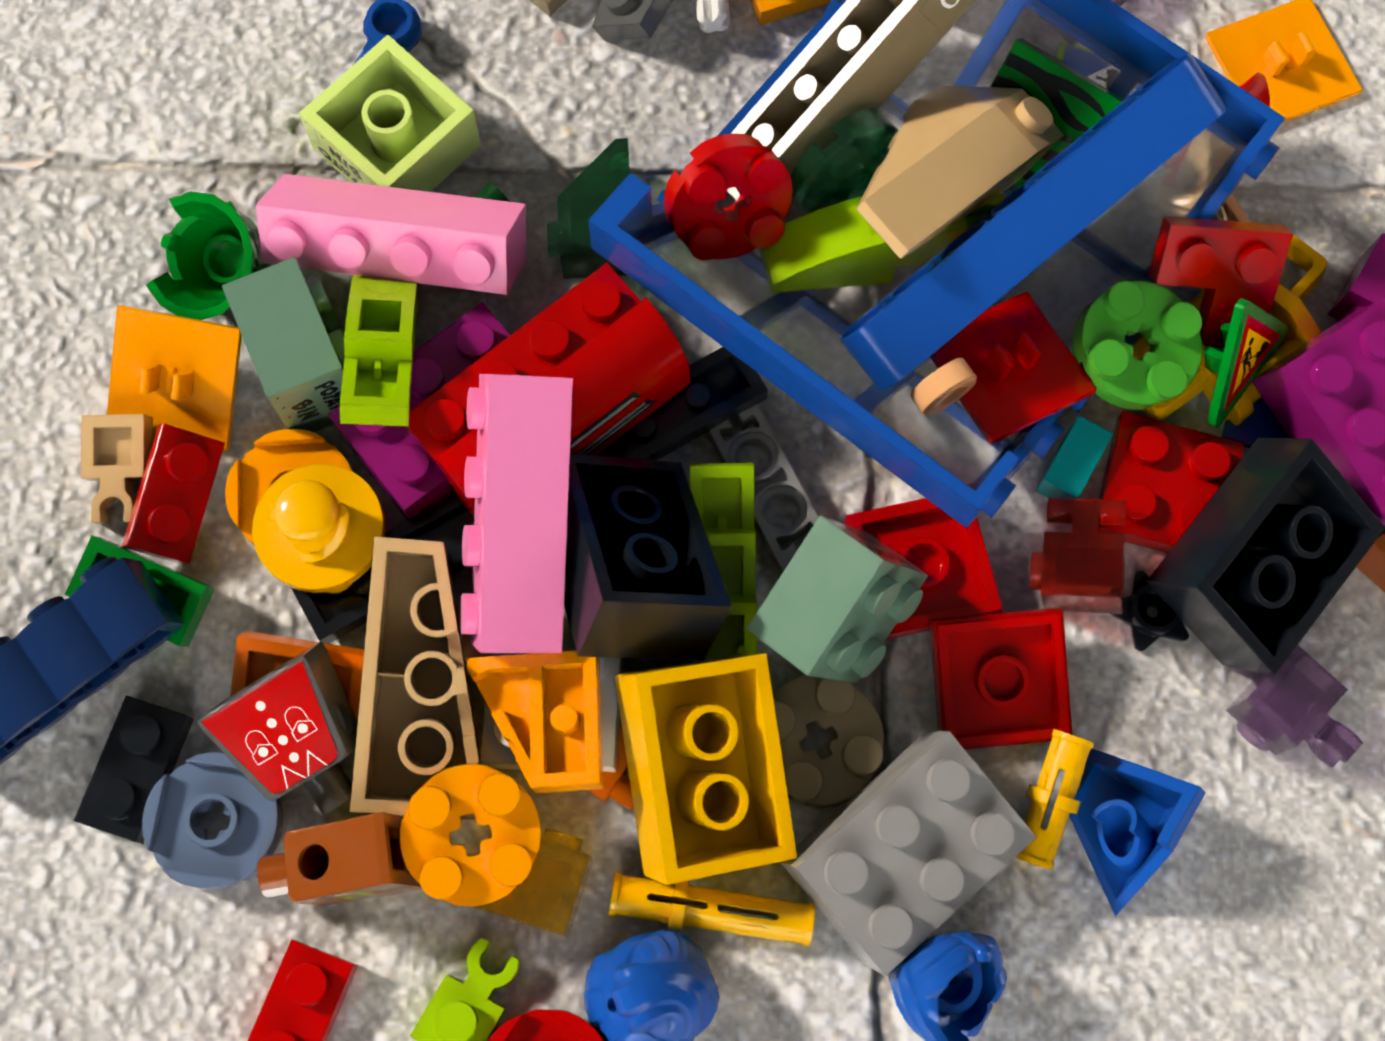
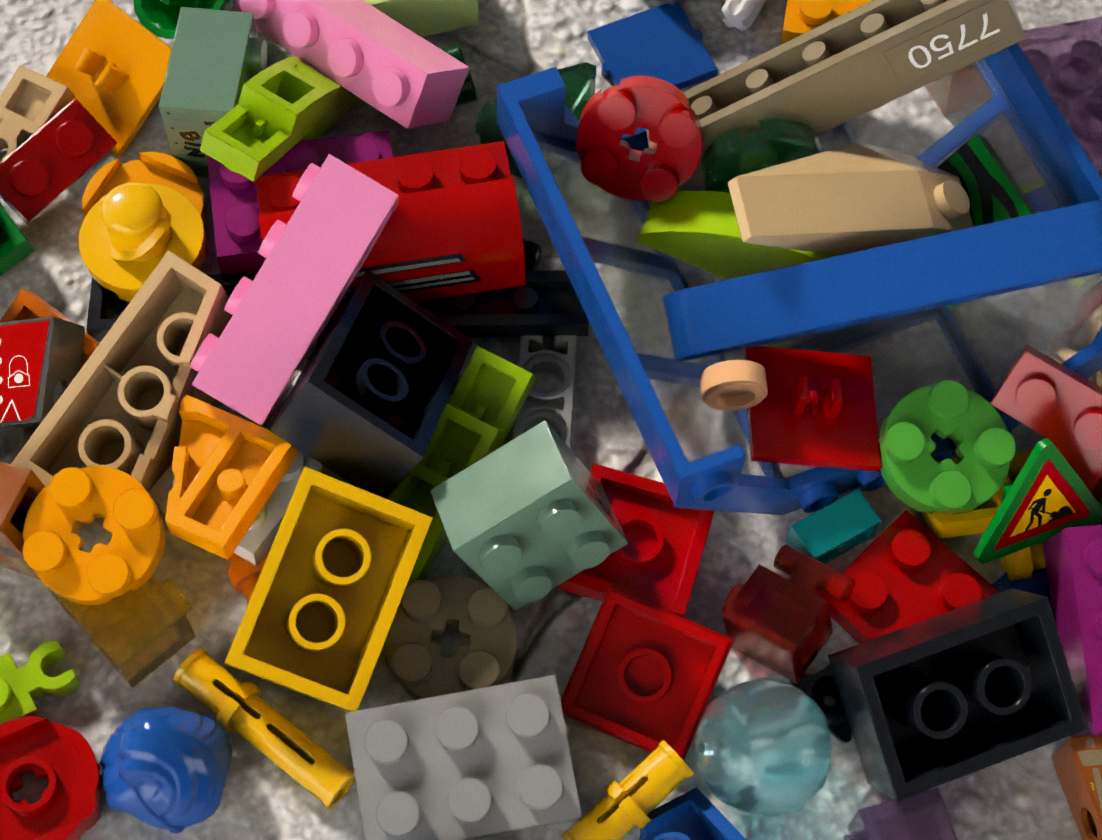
camera: 30 degrees right, 10 degrees down
(654, 94) = (654, 45): none -> blue piece
(1140, 689) = (763, 748): none -> clear light blue helmet

